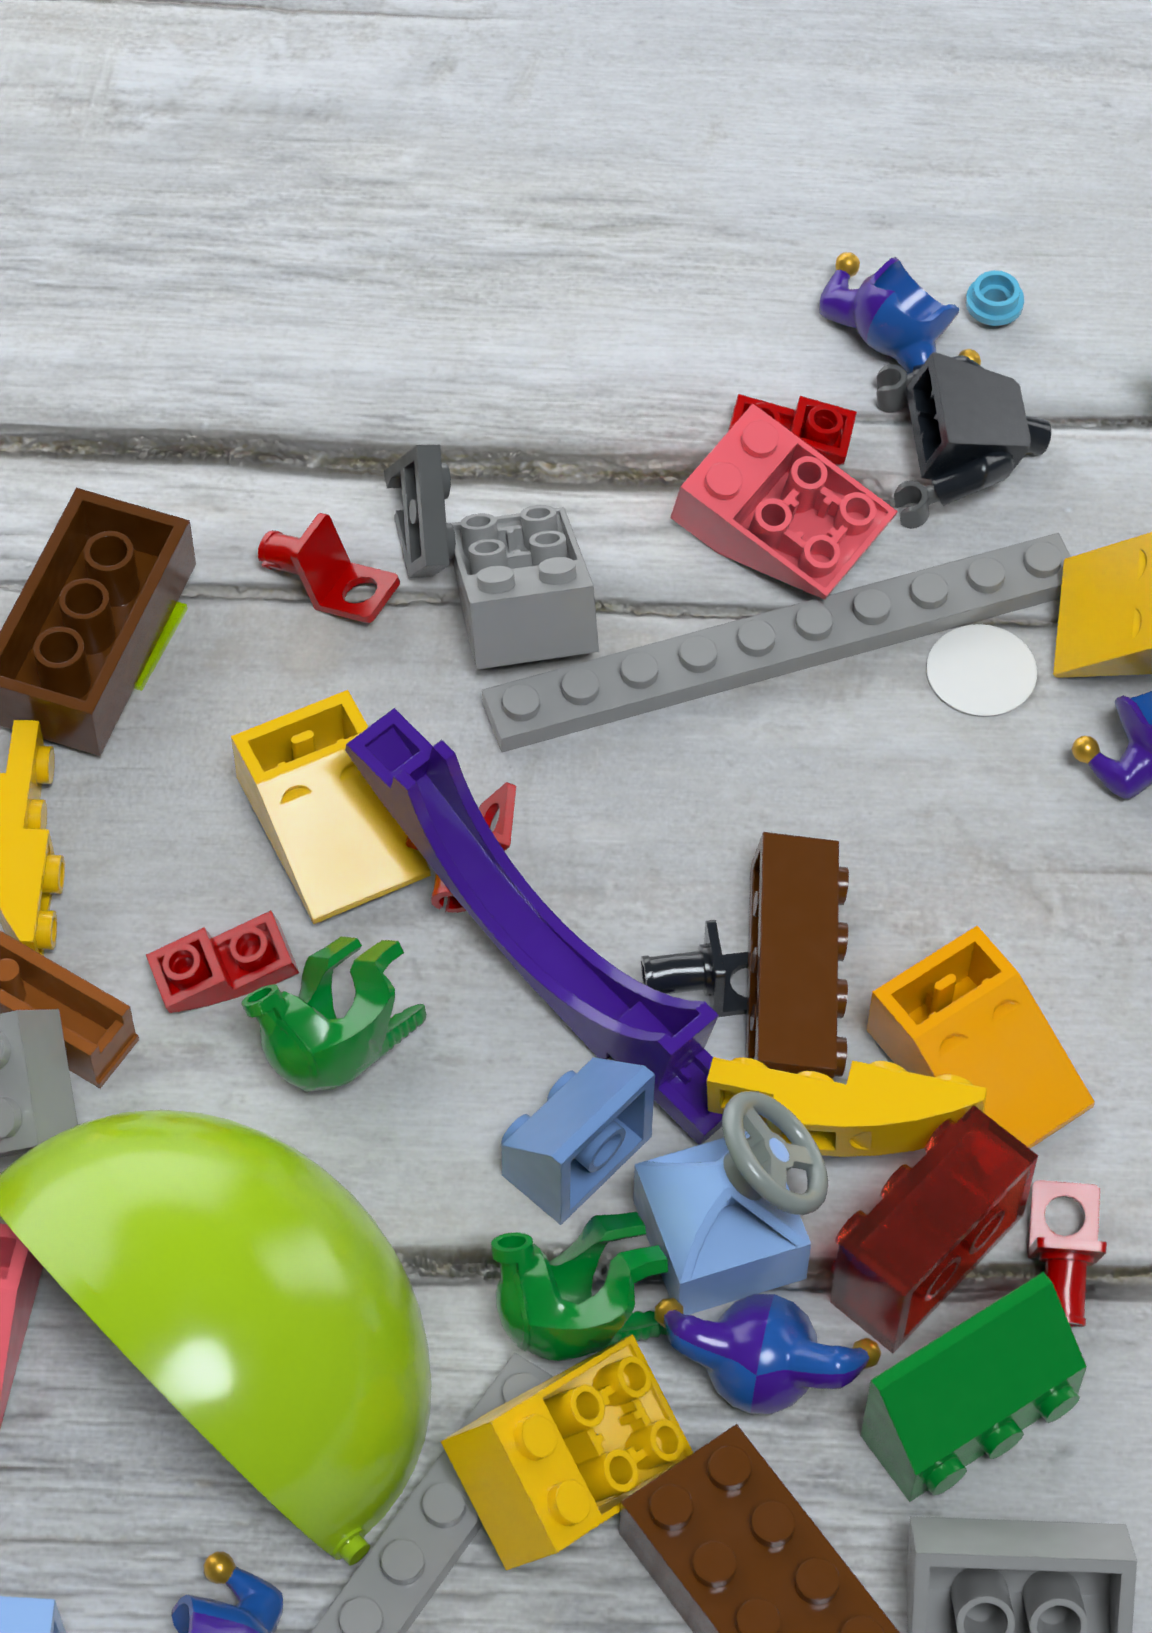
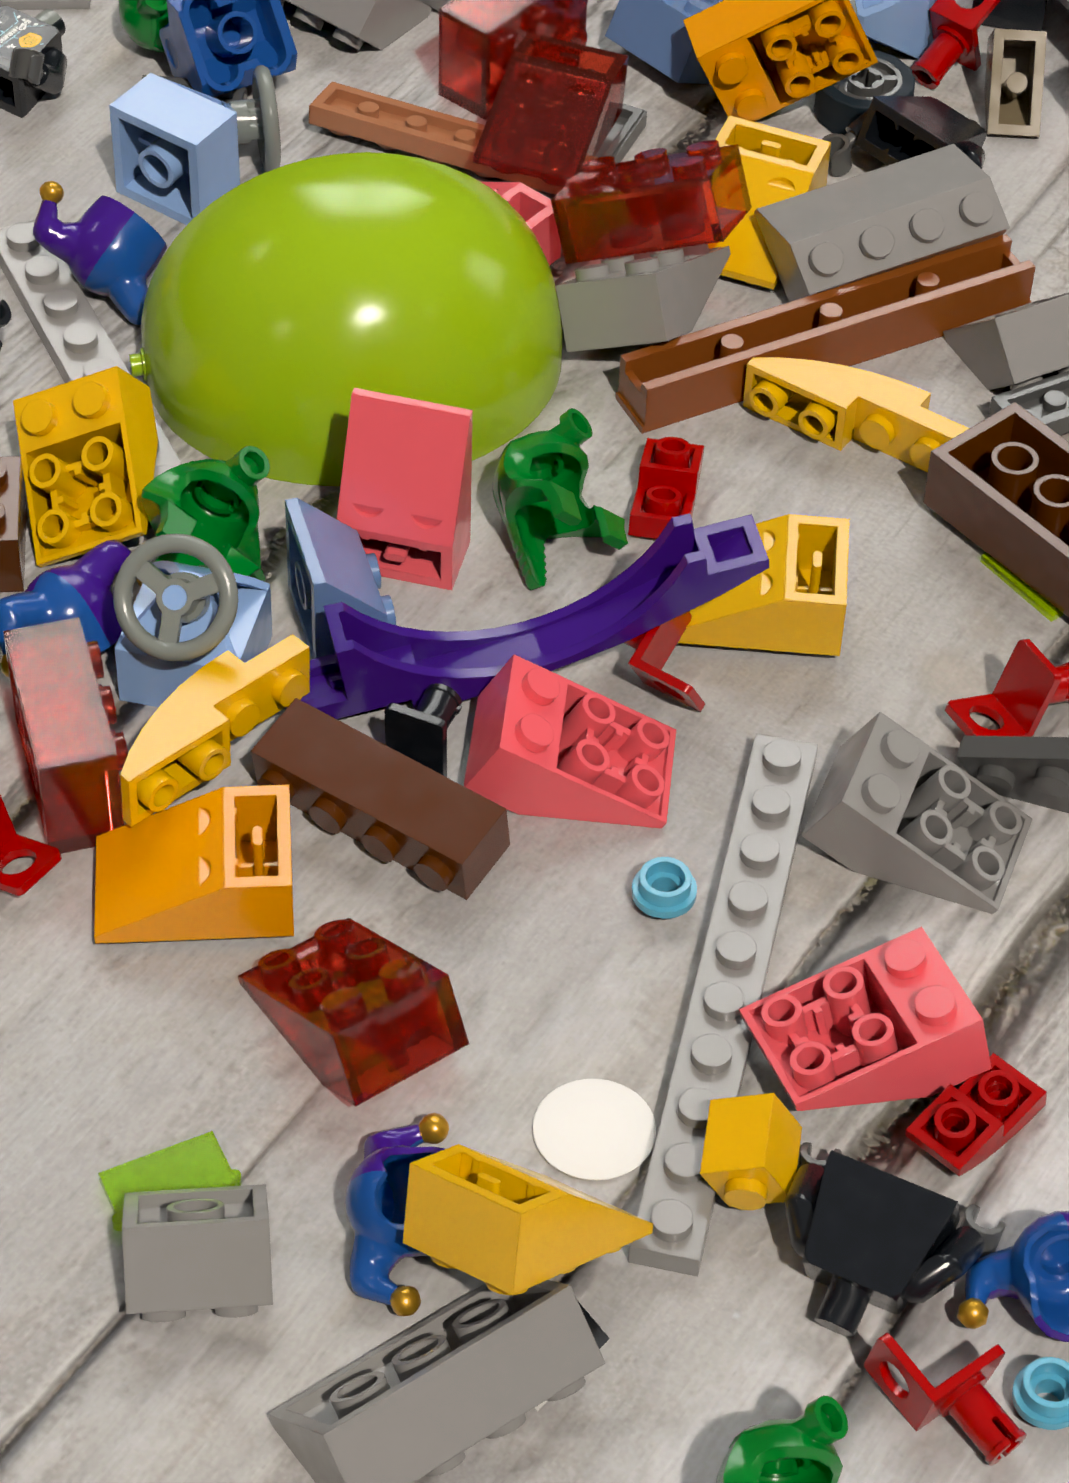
camera: 120 degrees right, 10 degrees down
(438, 1118) = (408, 485): none -> coral slope
(631, 863) = (567, 751): none -> coral slope
(725, 712) = (664, 888): none -> medium azure plate
(953, 527) = (750, 1150): none -> yellow brick
(1015, 866) = (357, 1008): none -> clear red slope
(1045, 339) = (959, 1396): none -> red bracket

